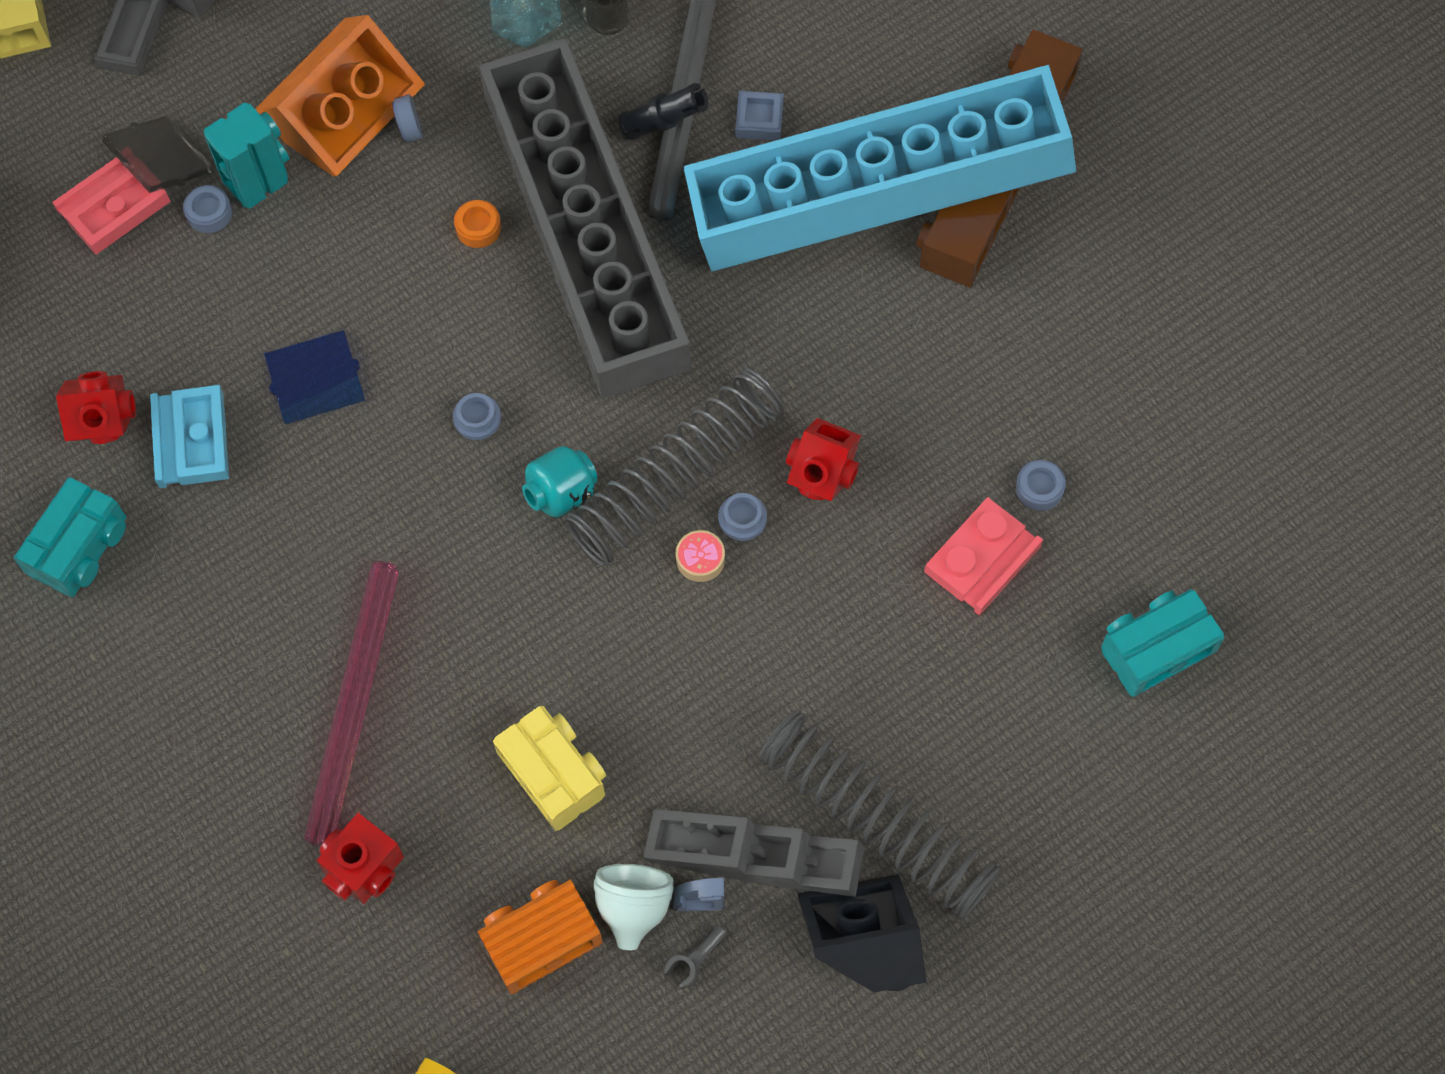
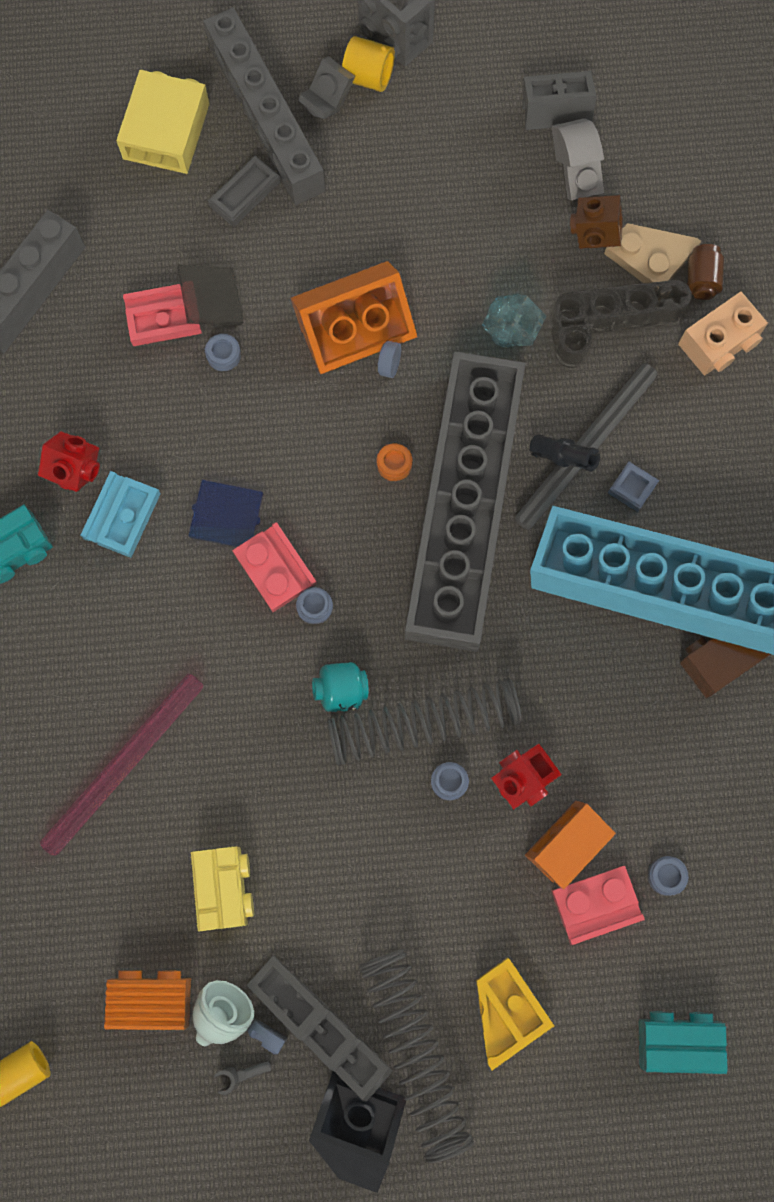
camera: 30 degrees right, 10 degrees up
(248, 154) = (265, 331): teal brick -> none
(359, 860) = (74, 877): red brick -> none
(405, 401) = (274, 567): none -> coral plate
(700, 556) = (405, 792): tile -> none
(915, 506) = (570, 844): none -> orange hinge
(954, 716) = (508, 1013): none -> yellow wing

